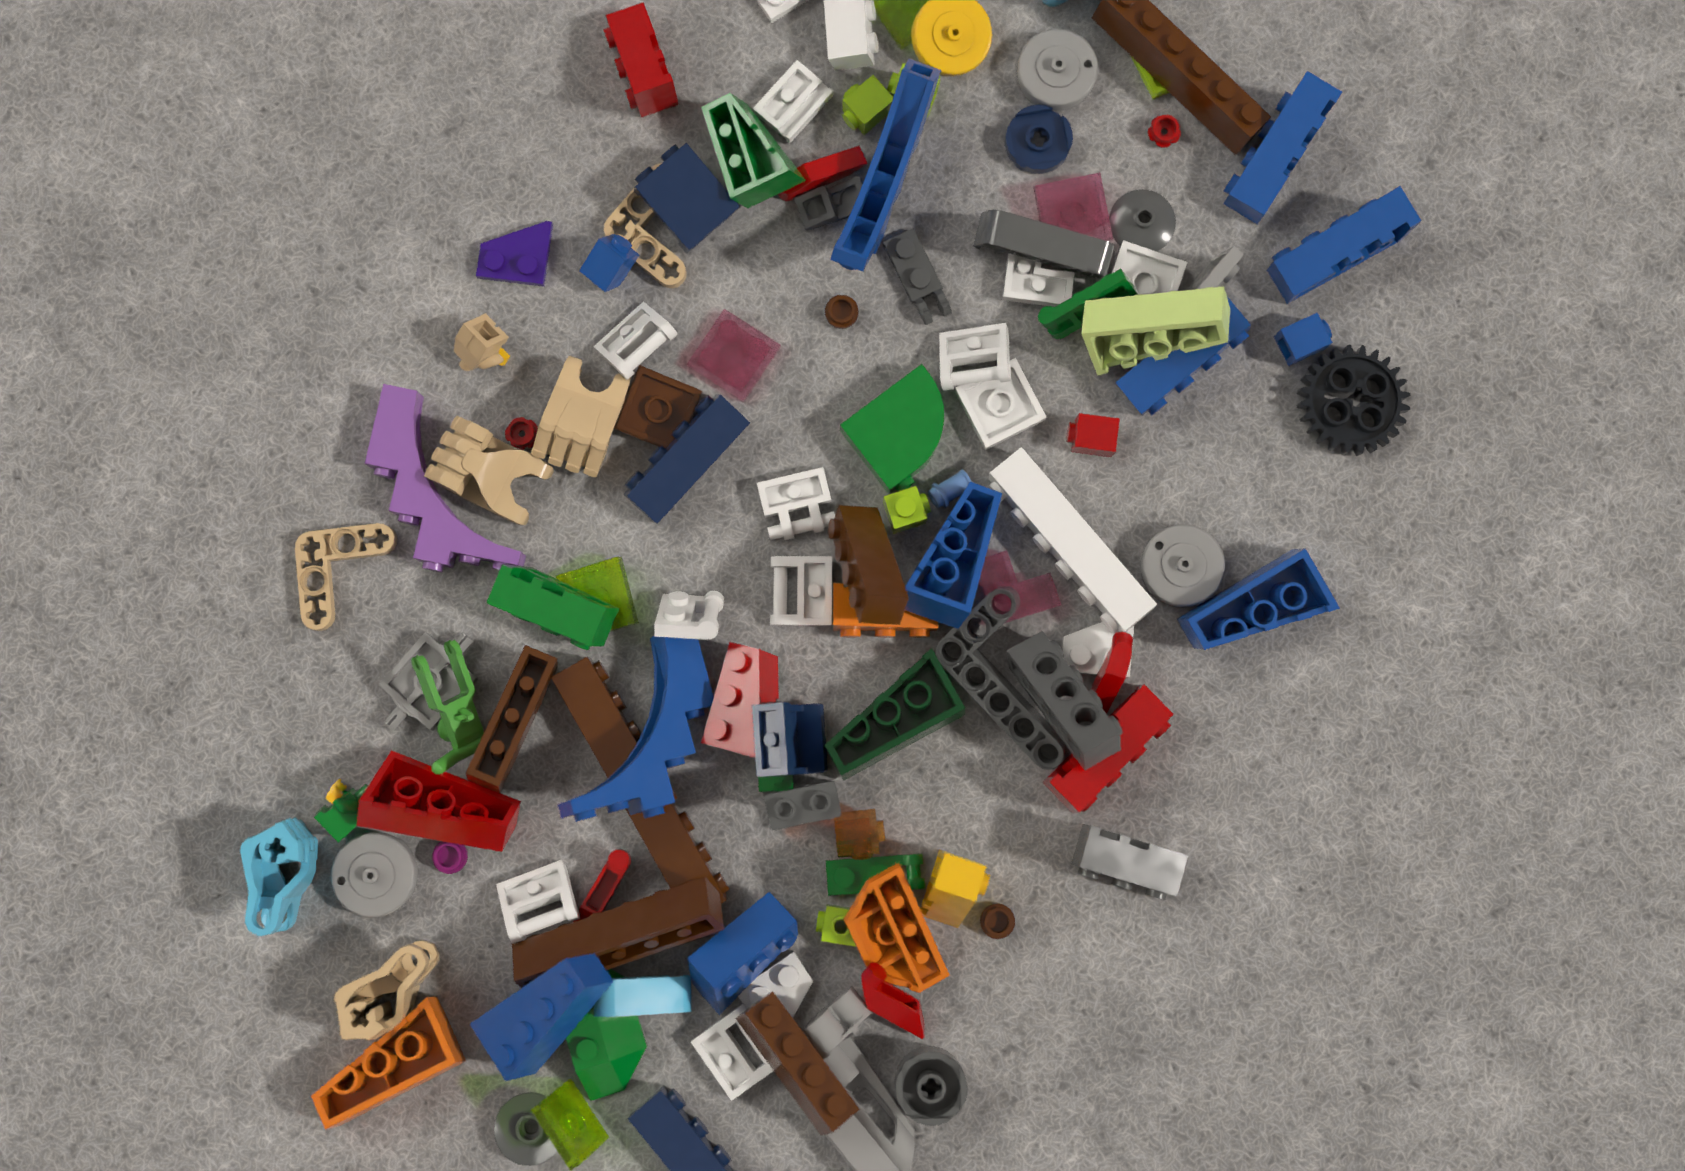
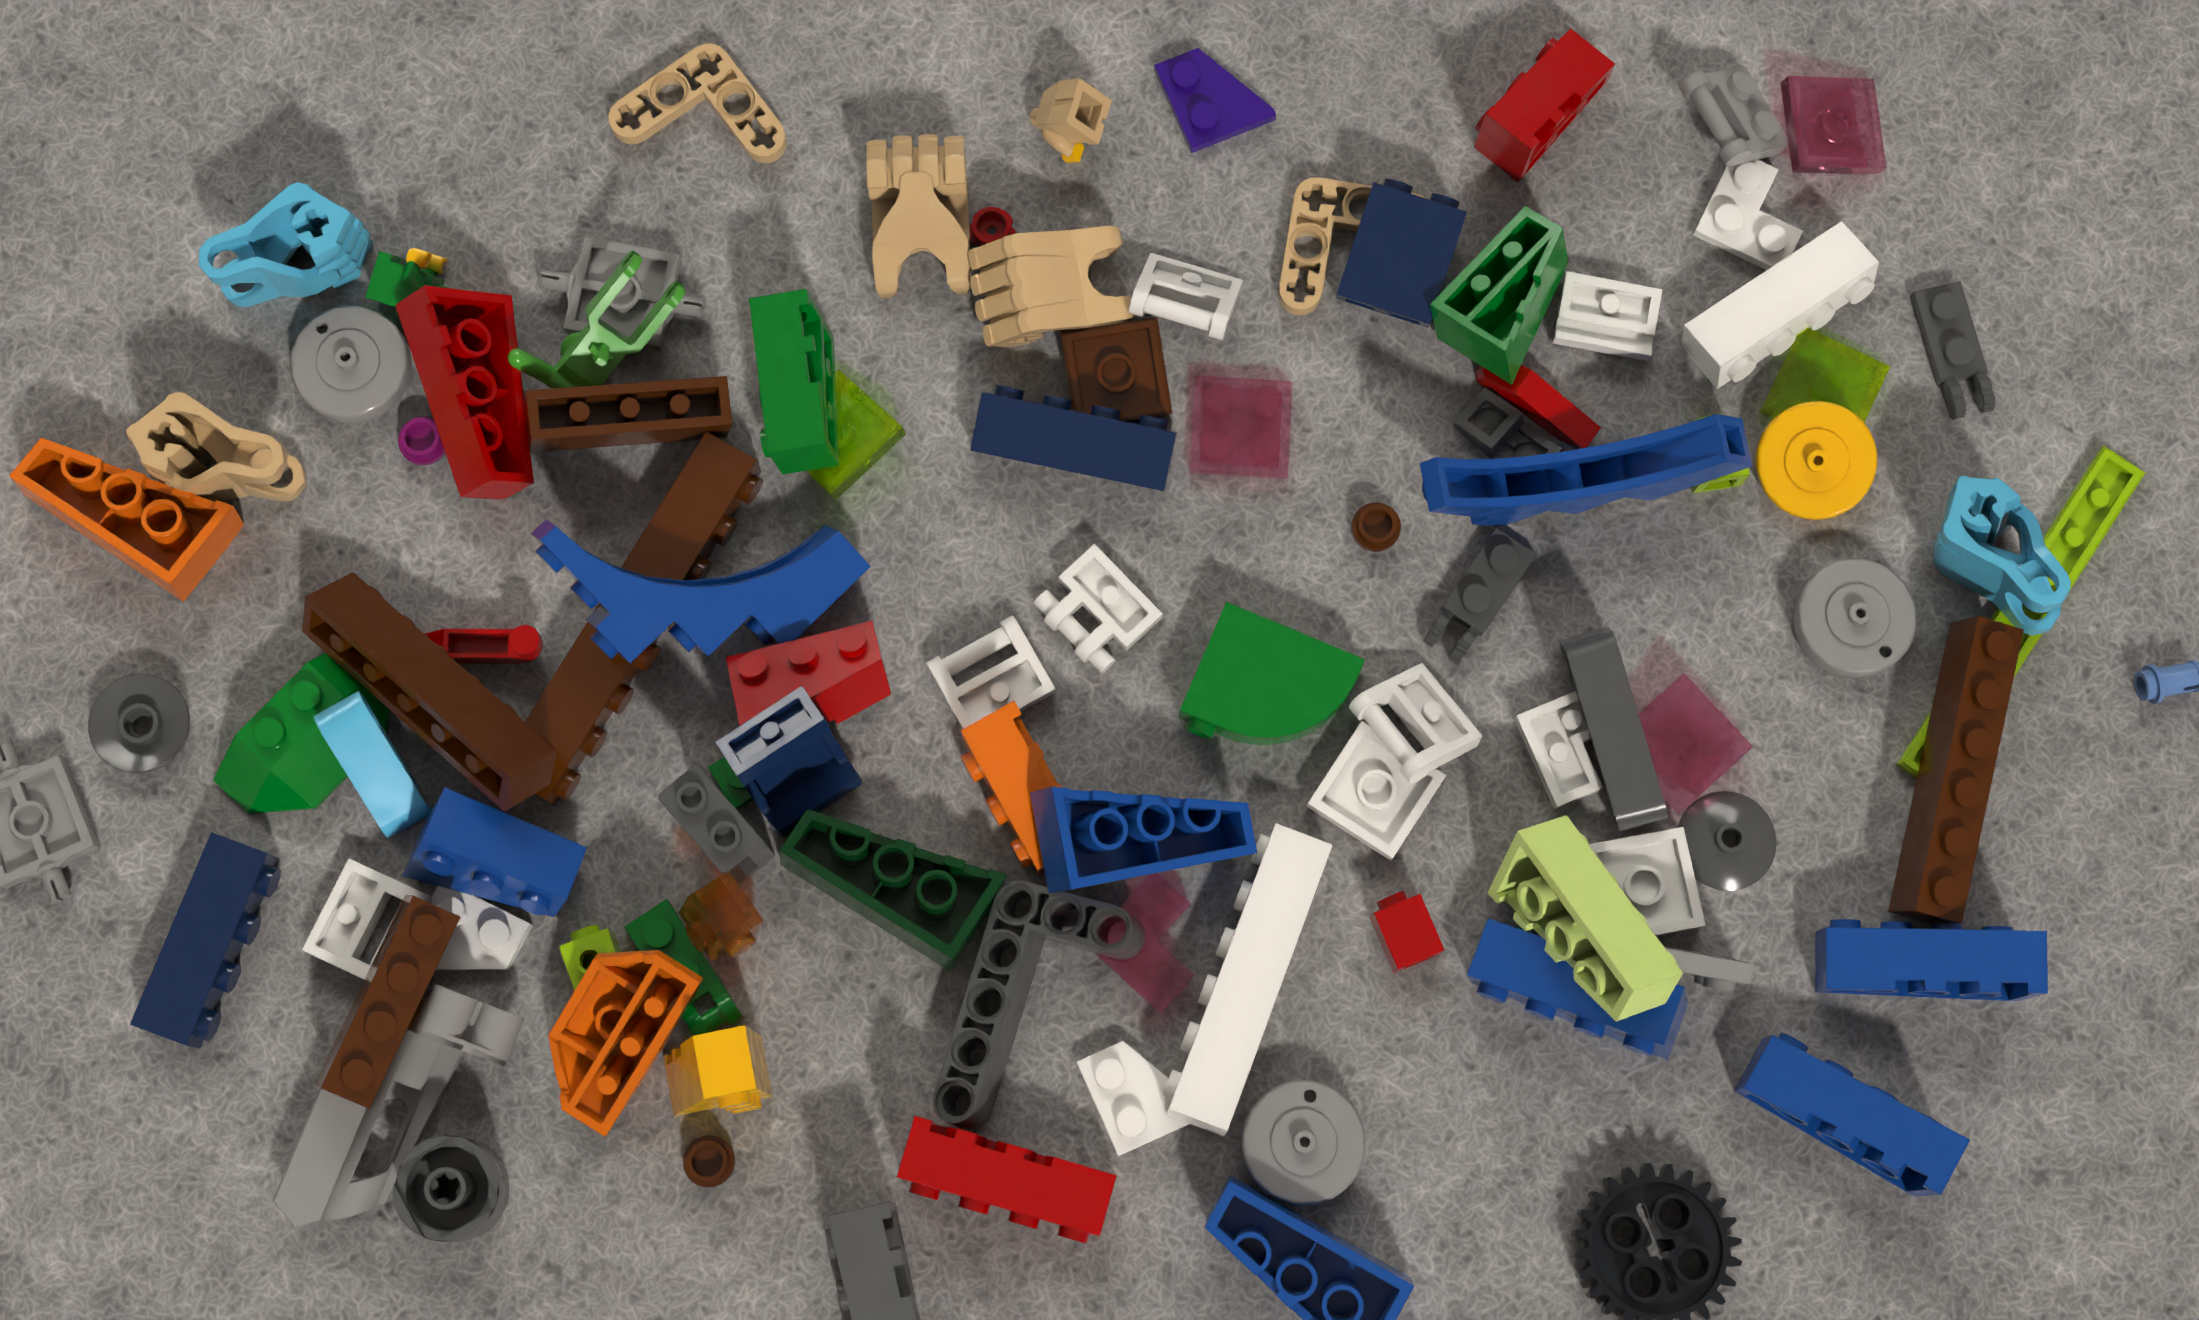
camera: 60 degrees right, 5 degrees down
(397, 449) = (879, 101): medium lavender arch -> none
(533, 892) = (431, 562): white plate -> none
(539, 1017) = (280, 651): blue wedge -> none
(570, 1124) = (168, 765): clear neon green plate -> none
(609, 262) = (1264, 209): blue brick -> none
(678, 612) = (876, 539): white plate -> none
(866, 105) = (1656, 403): lime brick -> none
(868, 565) = (1062, 731): reddish brown brick -> none
(891, 1001) = (531, 1079): red piece -> none
(906, 509) = (1168, 747): lime brick -> none
(949, 489) = (1227, 787): medium blue pin -> none
(1050, 125) = (1749, 618): dark blue plate -> none
(1069, 315) = (1534, 804): green plate -> none
(1087, 743) = (993, 1138): dark grey brick -> none
(1113, 669) = (1105, 1126): red piece -> none
(1168, 123) = (1873, 794): red plate -> none
(1303, 339) = (1698, 1136): blue brick -> none

